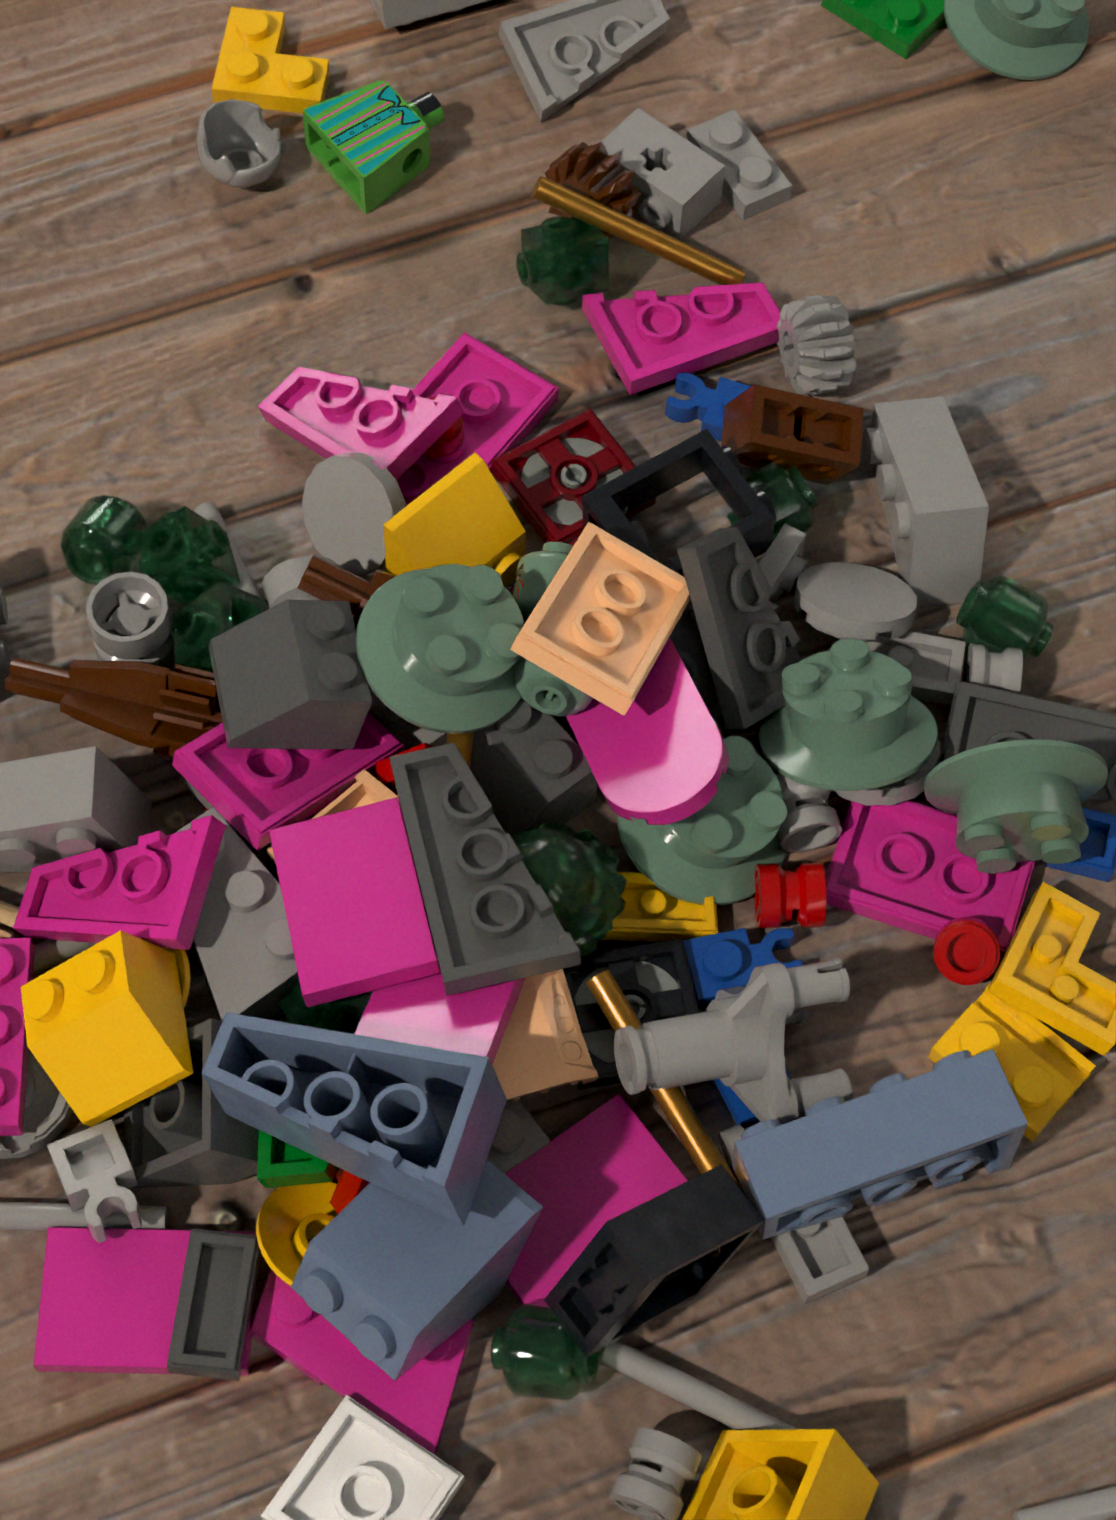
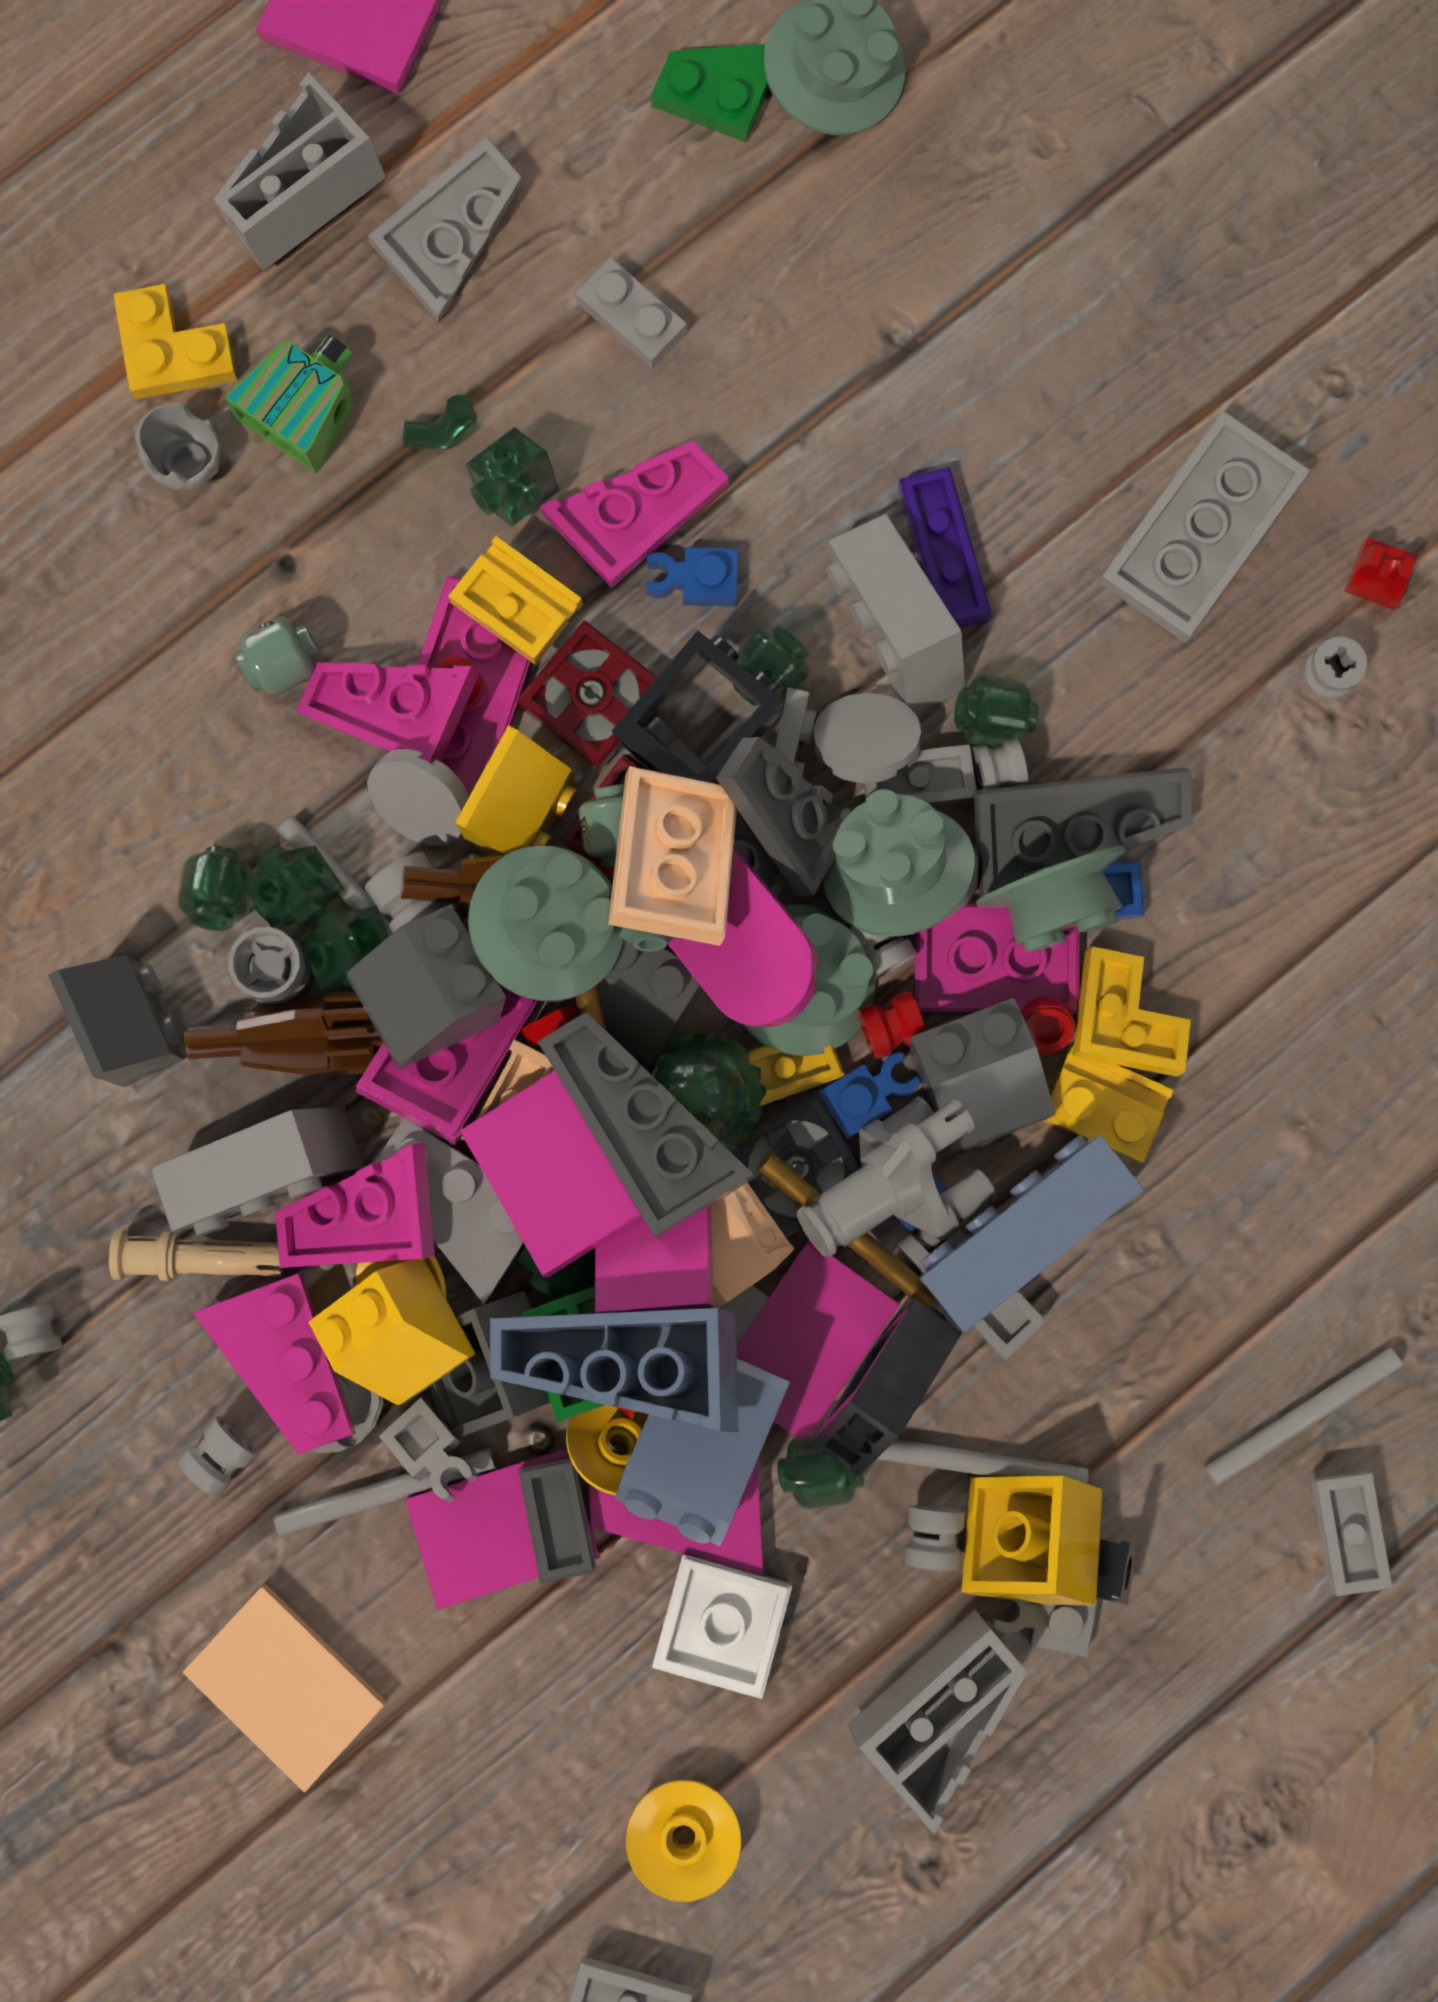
camera: 15 degrees left, 20 degrees up
(259, 349) = (277, 656): none -> sand green head
(506, 211) = (447, 430): none -> clear green arm
(525, 366) = (515, 600): none -> yellow plate
(596, 176) = (513, 395): reddish brown gear -> none
(636, 232) = (568, 432): pearl gold bar -> none
(674, 175) = (551, 334): light grey brick -> none
(793, 430) = (768, 597): reddish brown brick -> none
(816, 344) = (760, 493): light grey gear -> none
(894, 972) = (989, 1068): none -> dark grey slope
(1000, 455) = (945, 544): none -> dark purple tile

